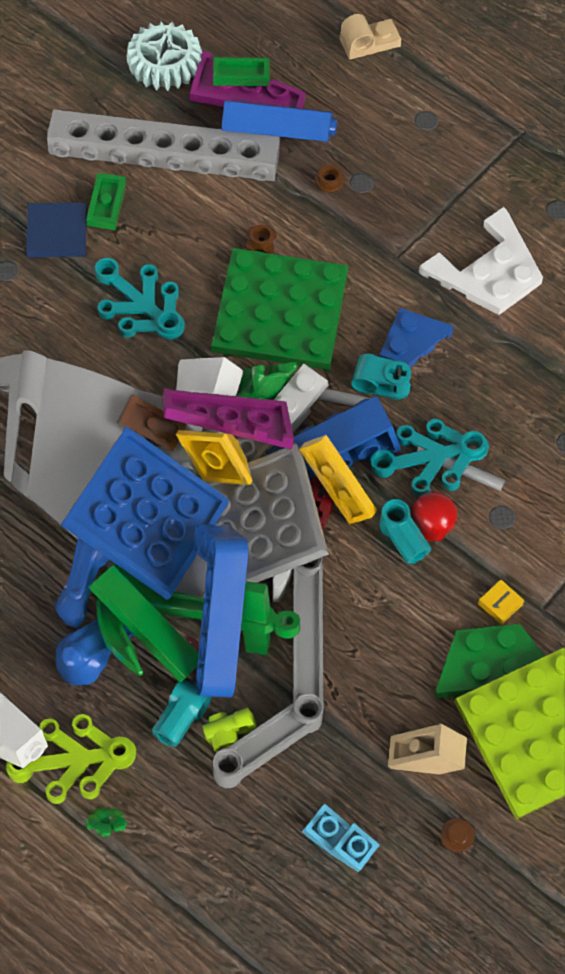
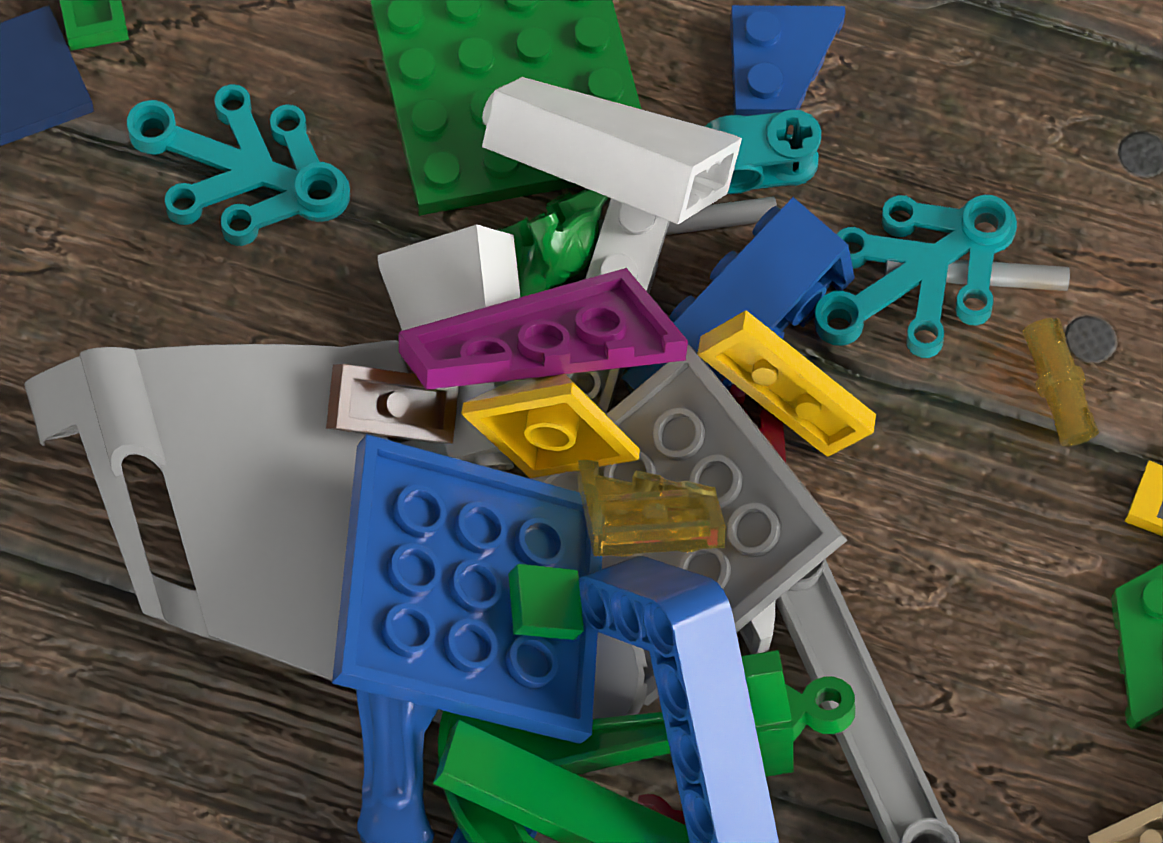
camera: 25 degrees left, 5 degrees up
(176, 529) = (545, 602): none -> green tile
(241, 510) = (648, 513): none -> clear yellow wing
(307, 348) = (612, 147): none -> white slope
(403, 533) = (941, 441): teal piece -> none
(434, 515) = (971, 385): red hair -> none
(475, 529) = (1060, 382): none -> clear yellow pin

